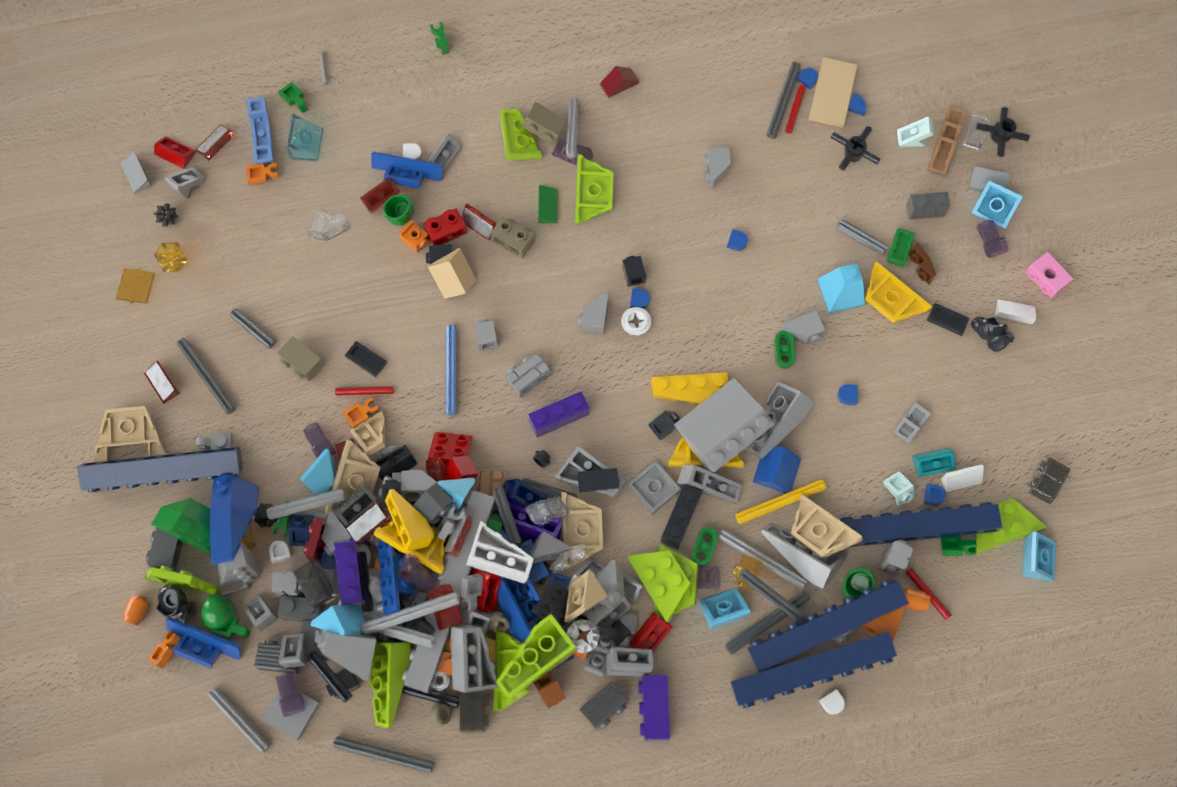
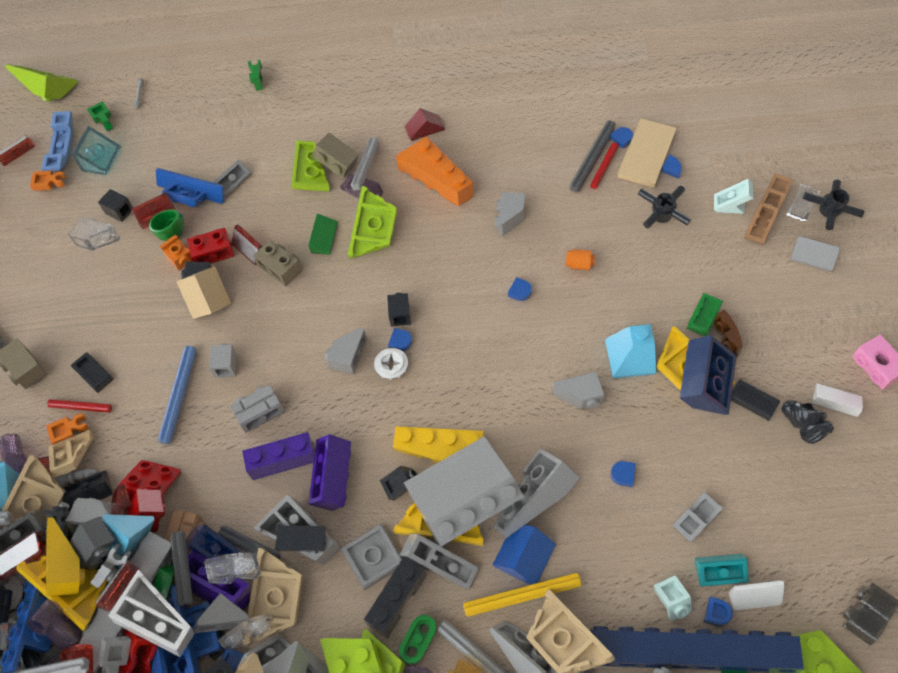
camera: 15 degrees right, 10 degrees down
(220, 66) = (42, 83): none -> lime wedge
(339, 193) = (115, 205): none -> black brick
(412, 151) = (200, 172): white tile -> none
(541, 458) = (250, 505): black plate -> none
(606, 423) = (330, 473): none -> dark purple brick
(635, 125) = (433, 168): none -> orange wedge
(784, 350) = (554, 414): green plate -> none
(787, 206) = (580, 259): none -> orange brick
(862, 237) = (662, 300): axle -> none
(909, 303) = (708, 375): none -> dark blue slope
(928, 205) = (741, 272): dark grey brick -> none
(993, 243) = (814, 319): clear purple piece -> none
(997, 204) = (822, 277): medium azure slope -> none

